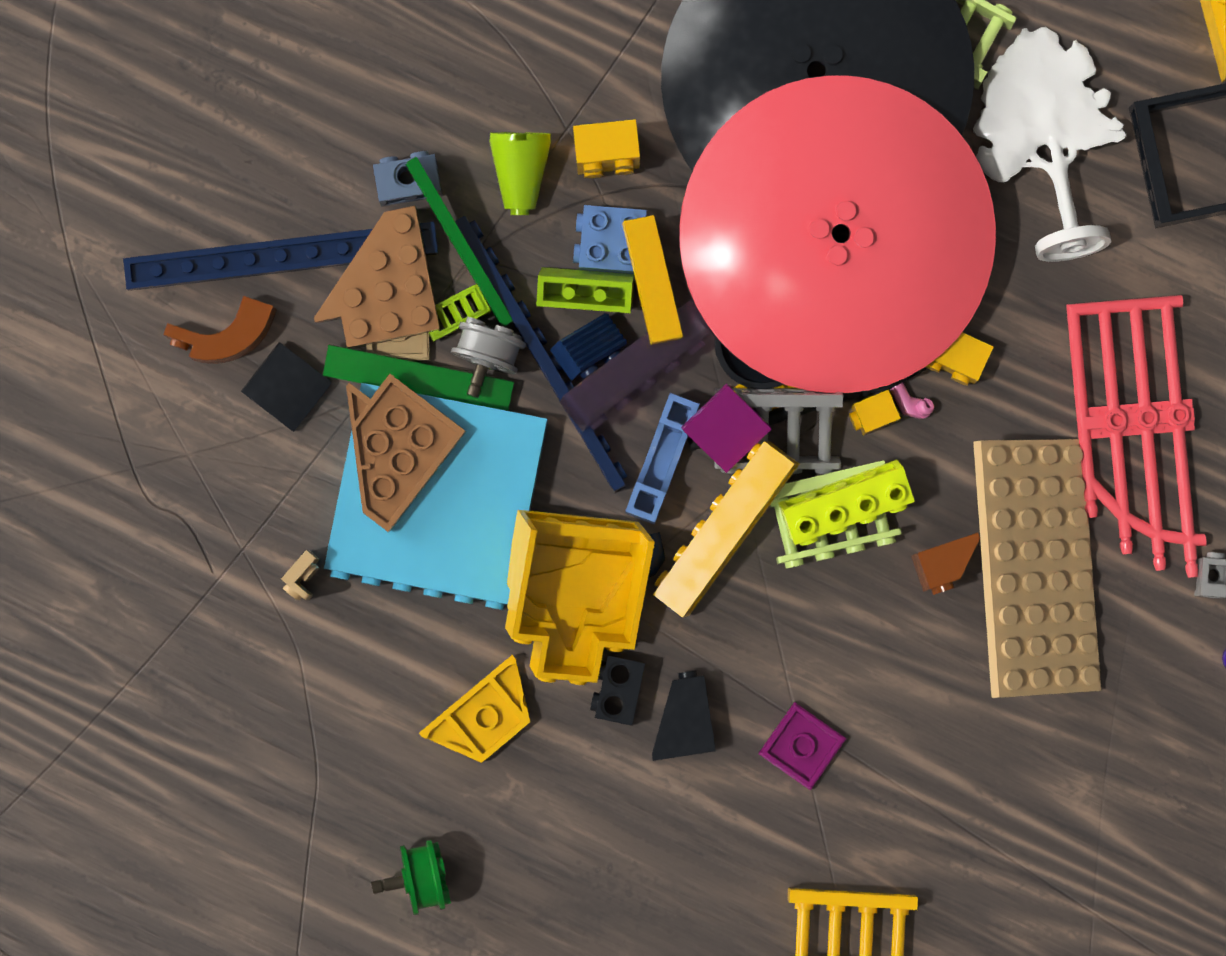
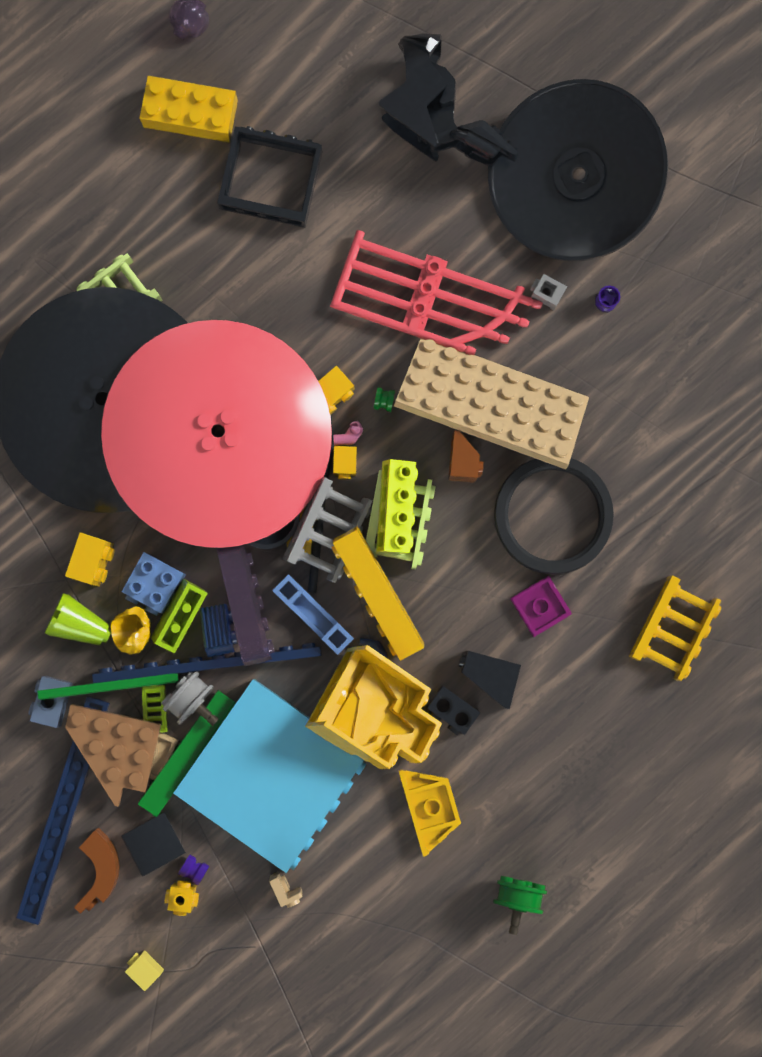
camera: 75 degrees left, 0 degrees up
(127, 444) = (143, 969): none -> light yellow brick
(247, 455) = (187, 891): none -> yellow brick
(275, 451) = (193, 870): none -> dark purple wheel
(396, 447) = (227, 789): medium nougat wing -> none
(540, 239) = (131, 630): none -> yellow hair
(652, 280) = (192, 568): yellow tile -> none
(726, 428) = (312, 563): magenta tile -> none
(857, 733) = (602, 534): none -> black tyre
(977, 427) = (384, 399): none -> green wheel
(1038, 100) = (188, 264): white plant -> none

